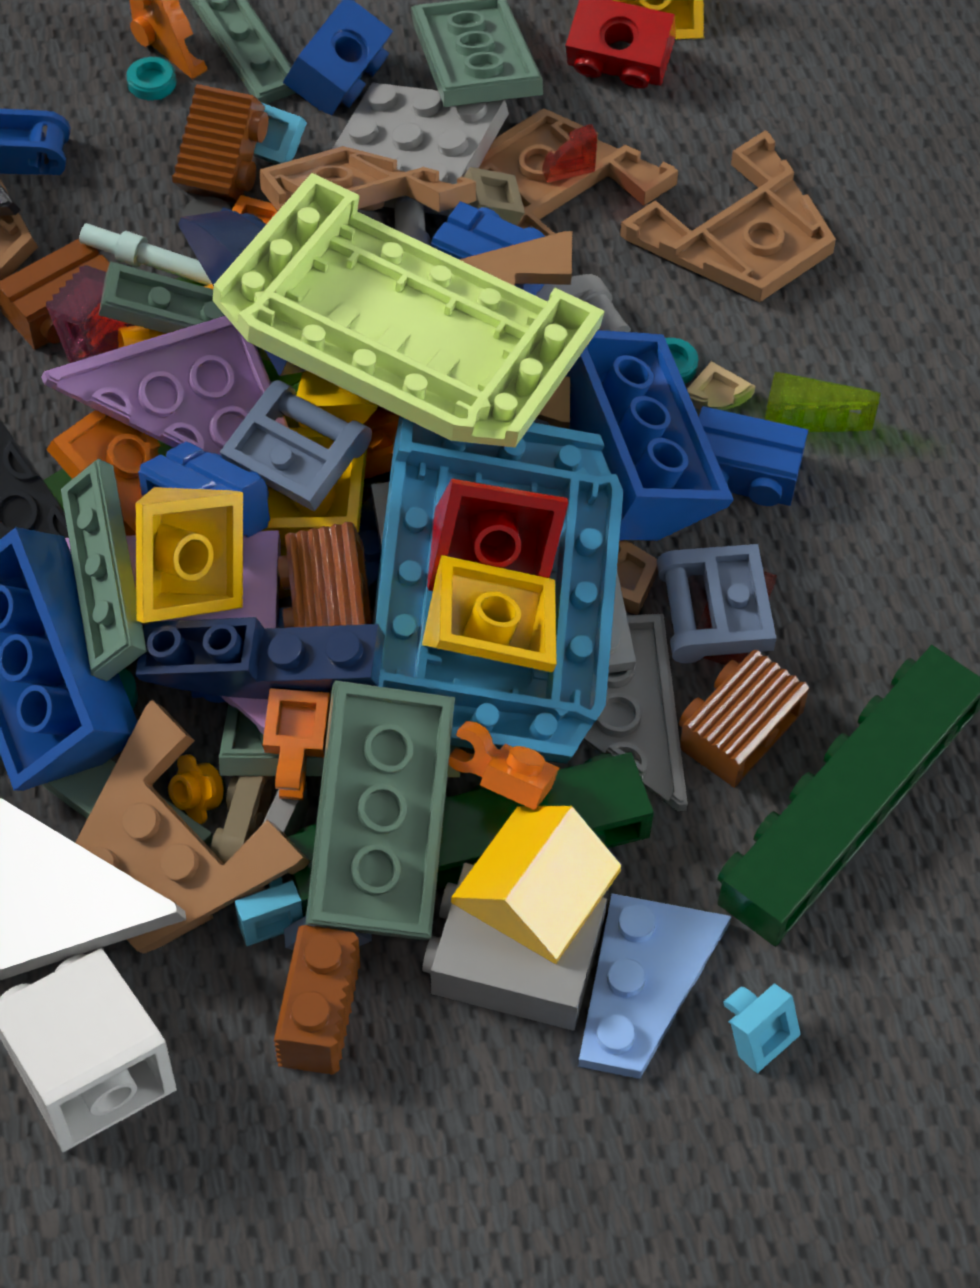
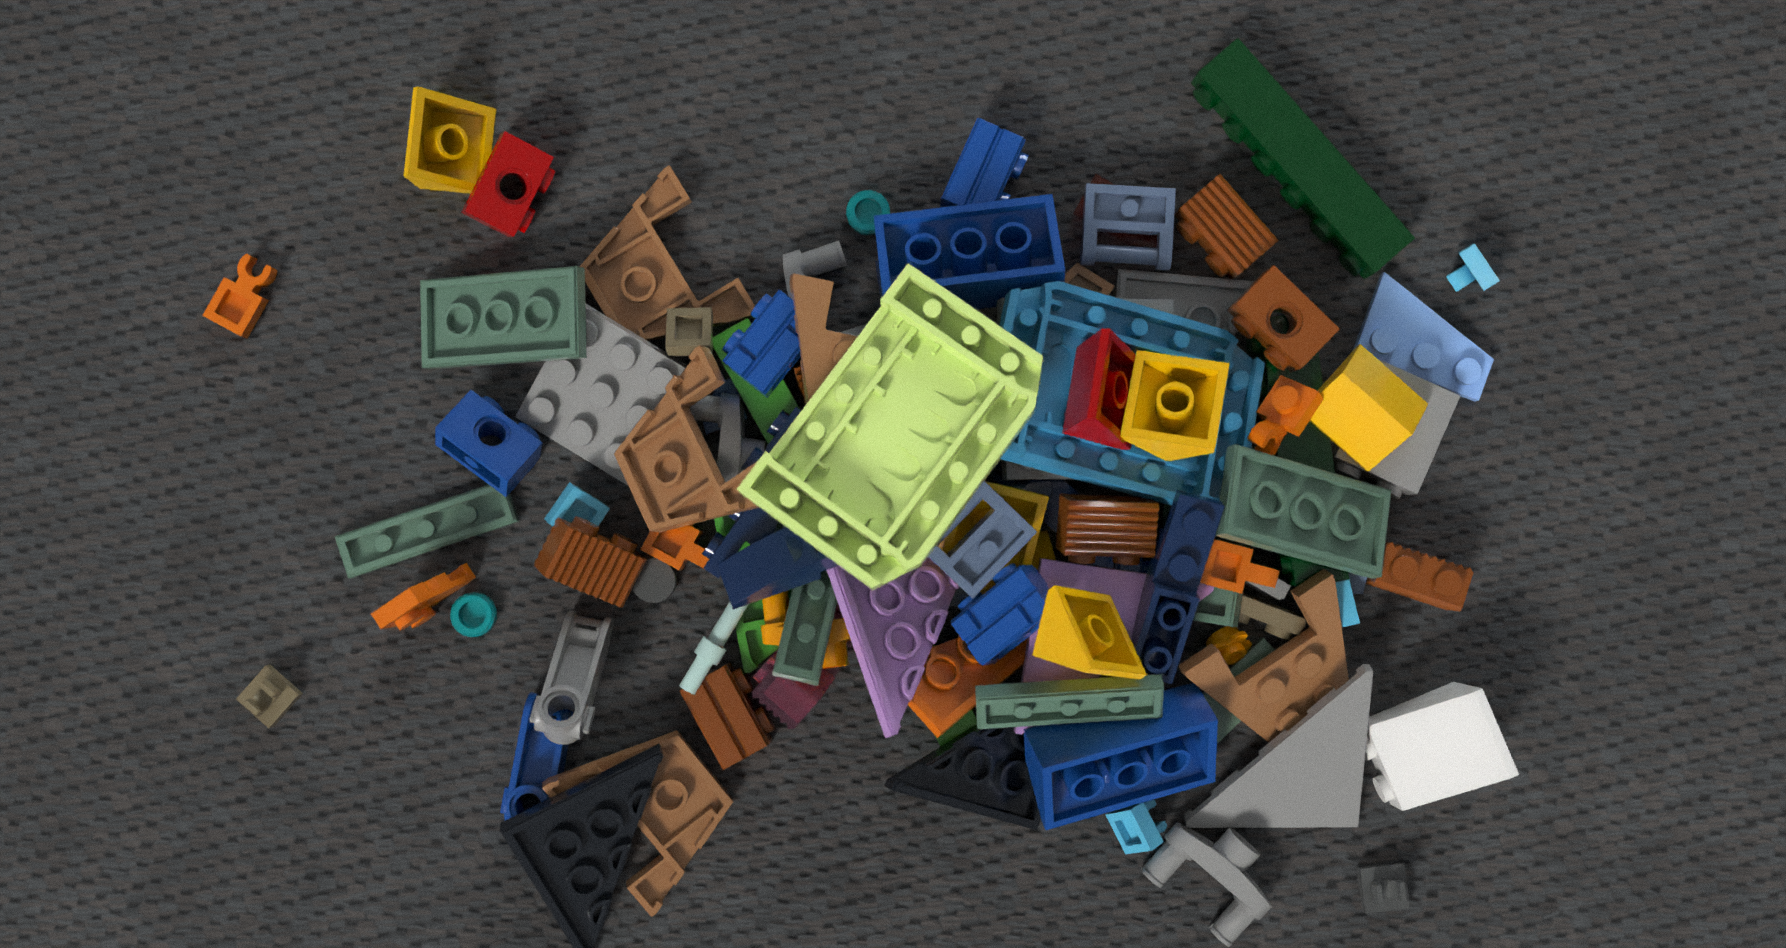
camera: 80 degrees left, 30 degrees up
(90, 145) = (573, 678): none -> light grey piece
(573, 157) = (651, 248): clear red tile -> none
(624, 787) = (1308, 325): none -> dark orange brick
(719, 388) = (901, 181): tan tile -> none
(754, 242) = (751, 111): medium nougat wing -> none
(820, 404) = (937, 119): clear neon green slope -> none

